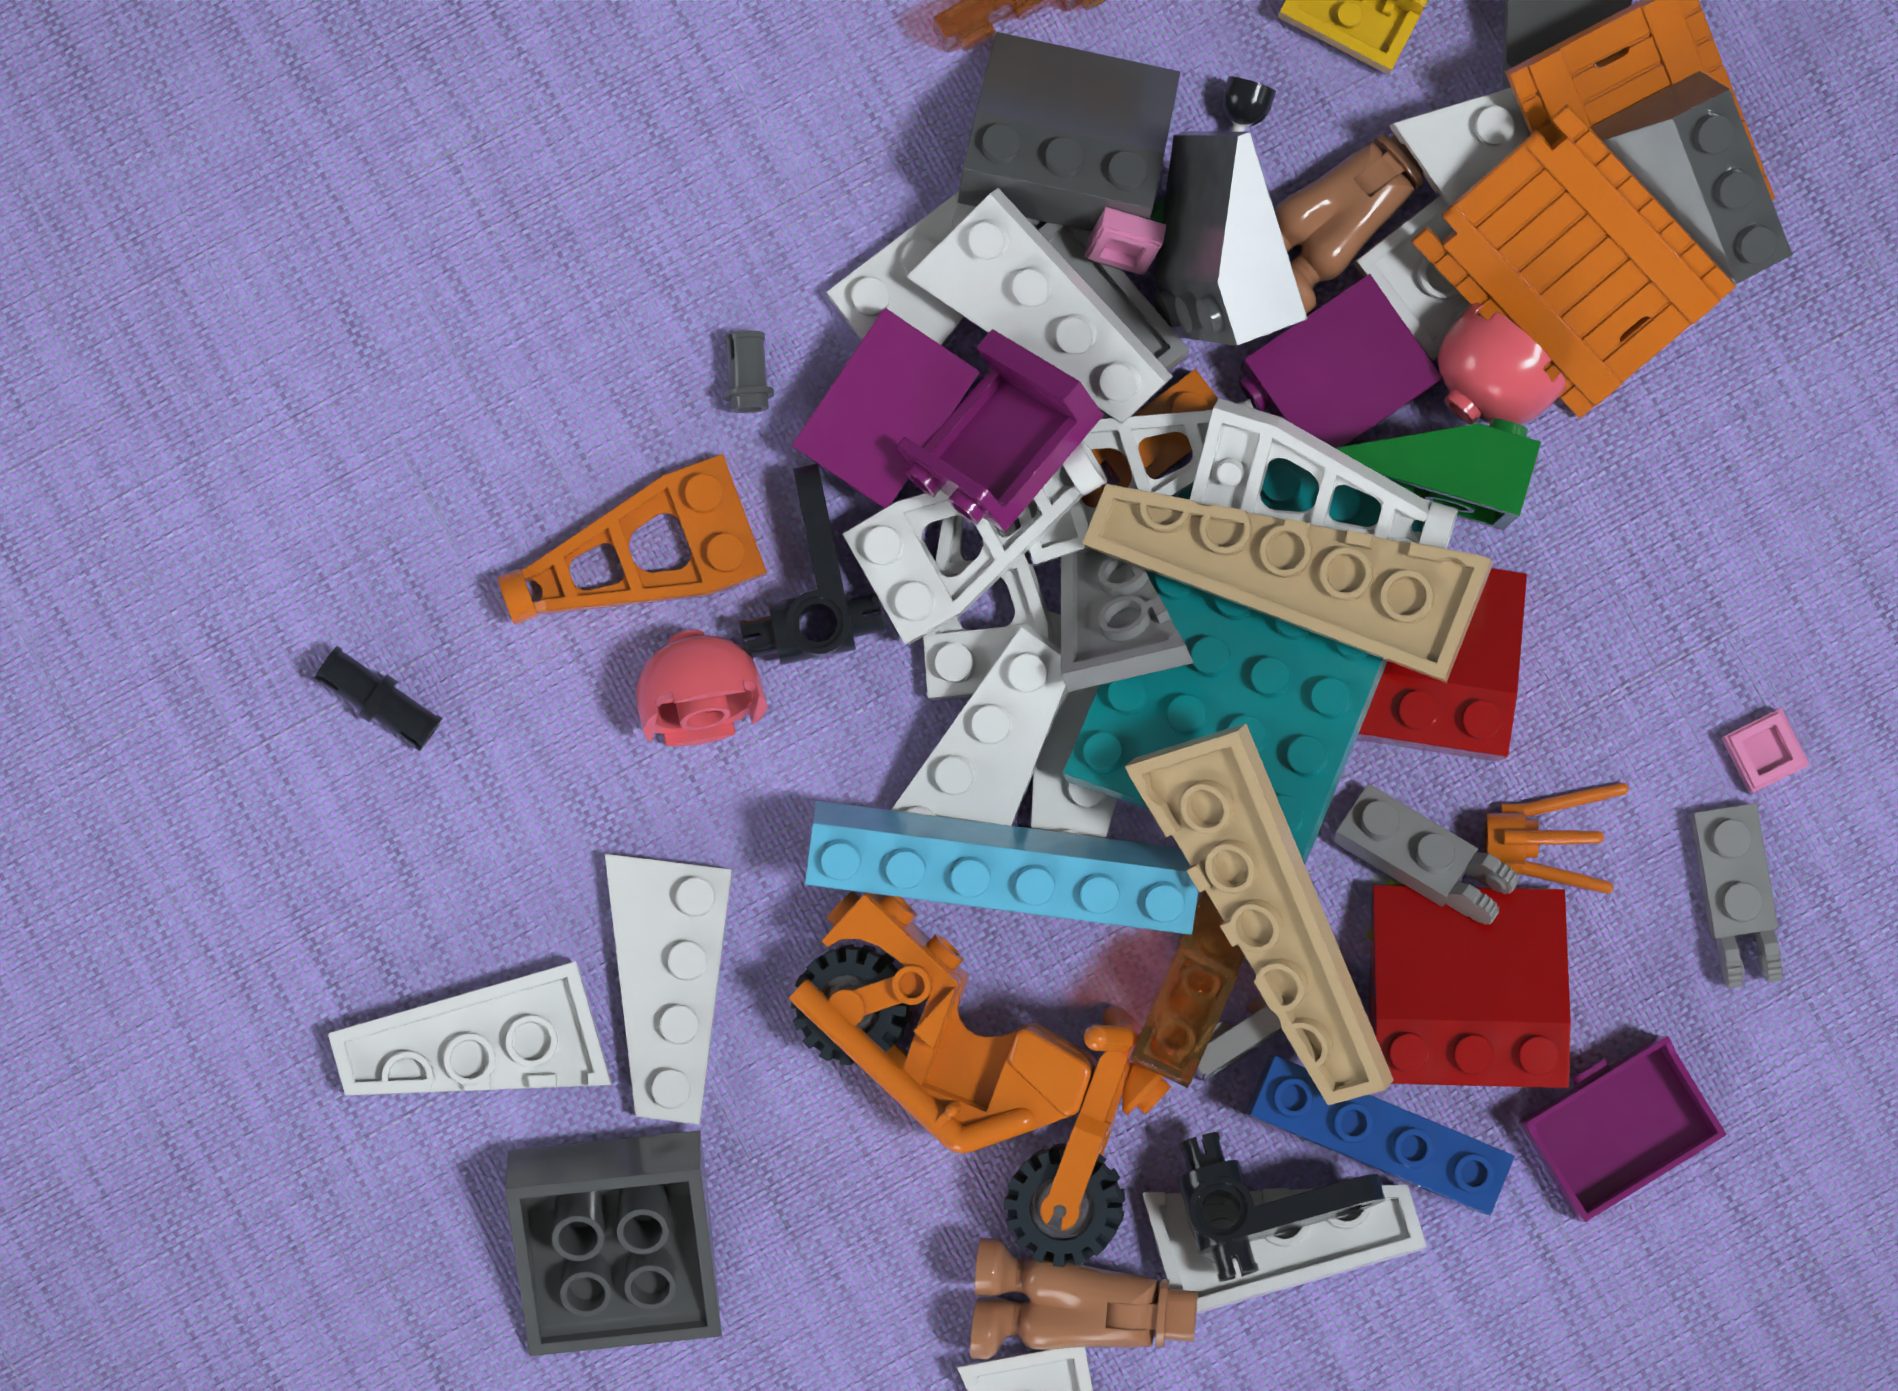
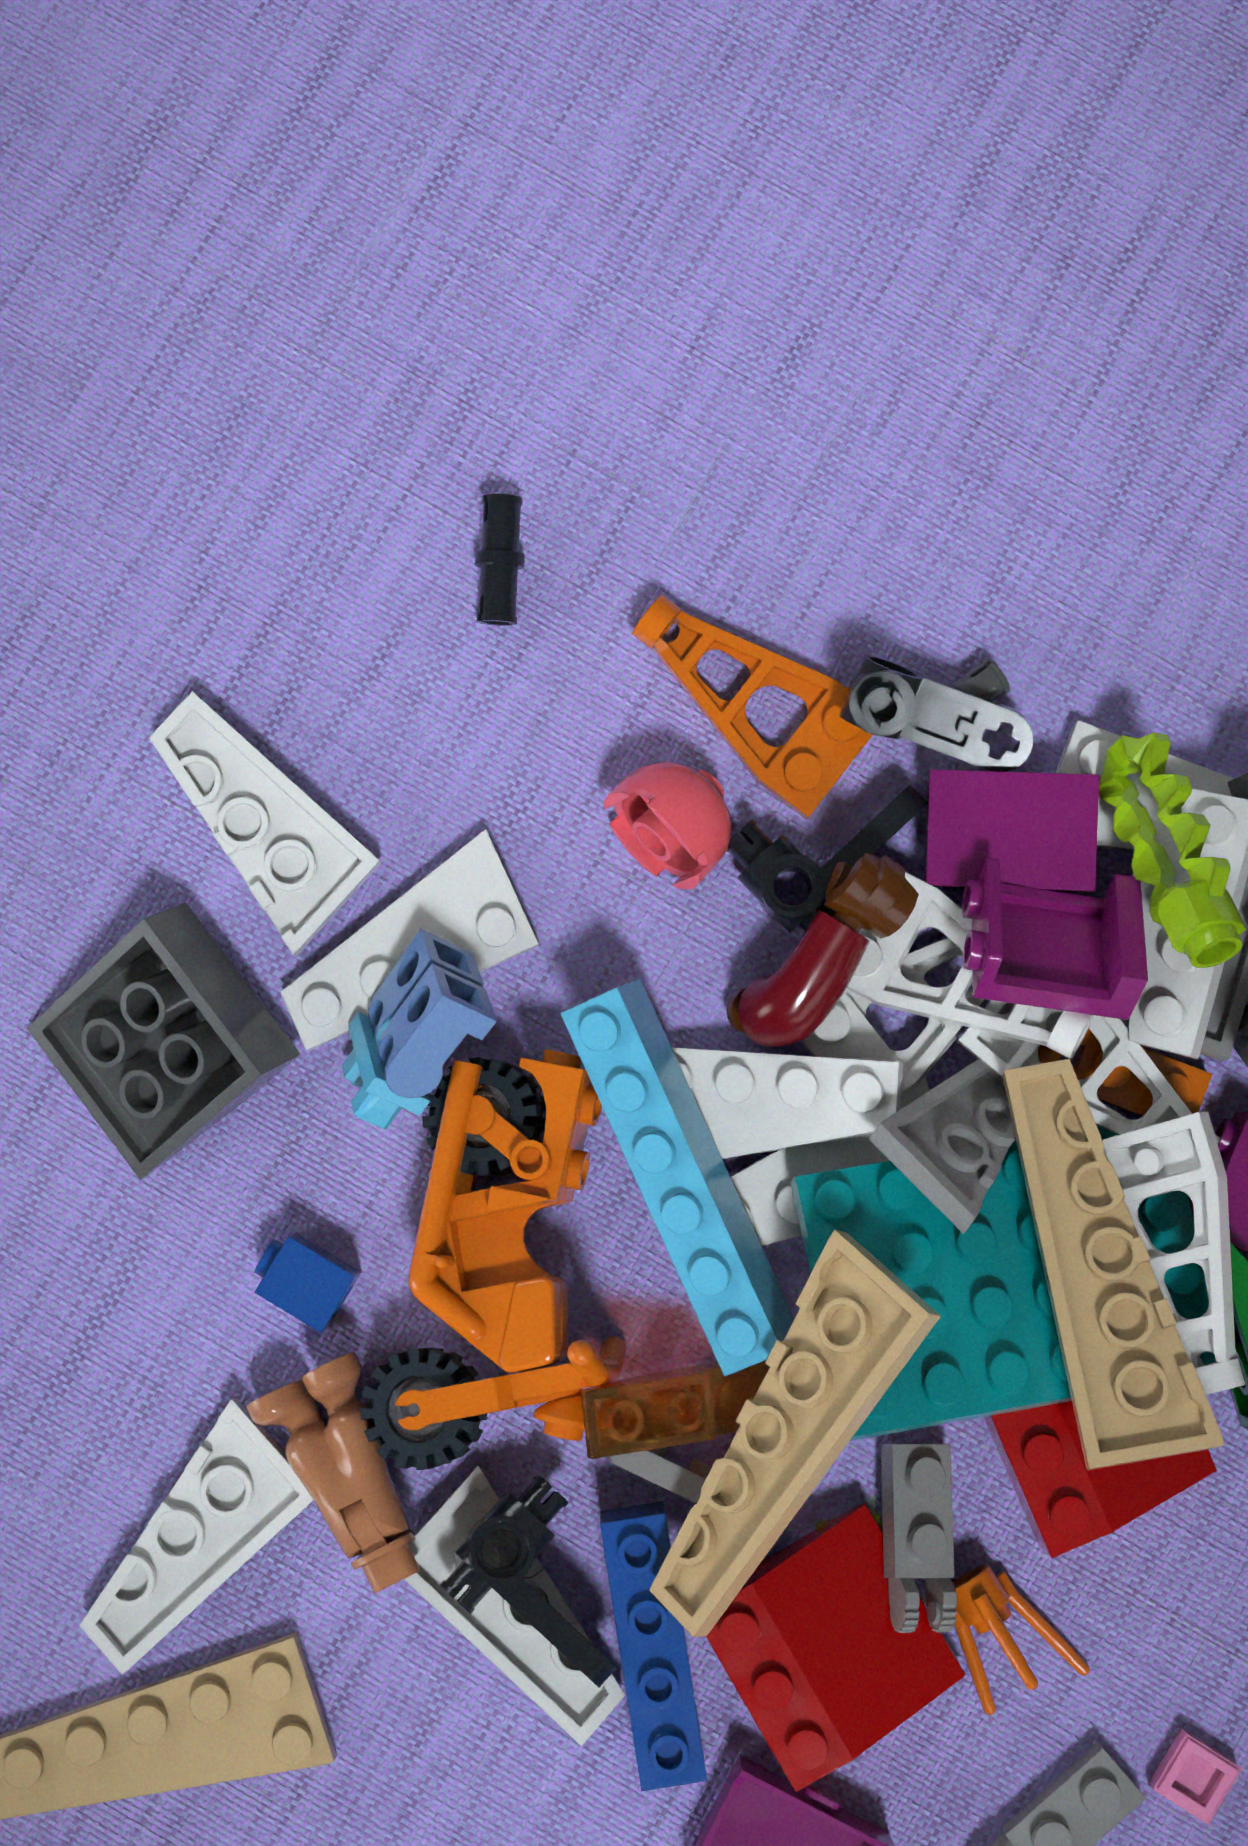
camera: 65 degrees right, 0 degrees up
(721, 431) = (932, 713): none -> piece
(740, 1017) = (414, 1028): none -> medium blue hips
(895, 1244) = (305, 1280): none -> blue brick
(907, 655) = (819, 969): none -> dark red piece
(1051, 302) = (1194, 913): none -> lime sword

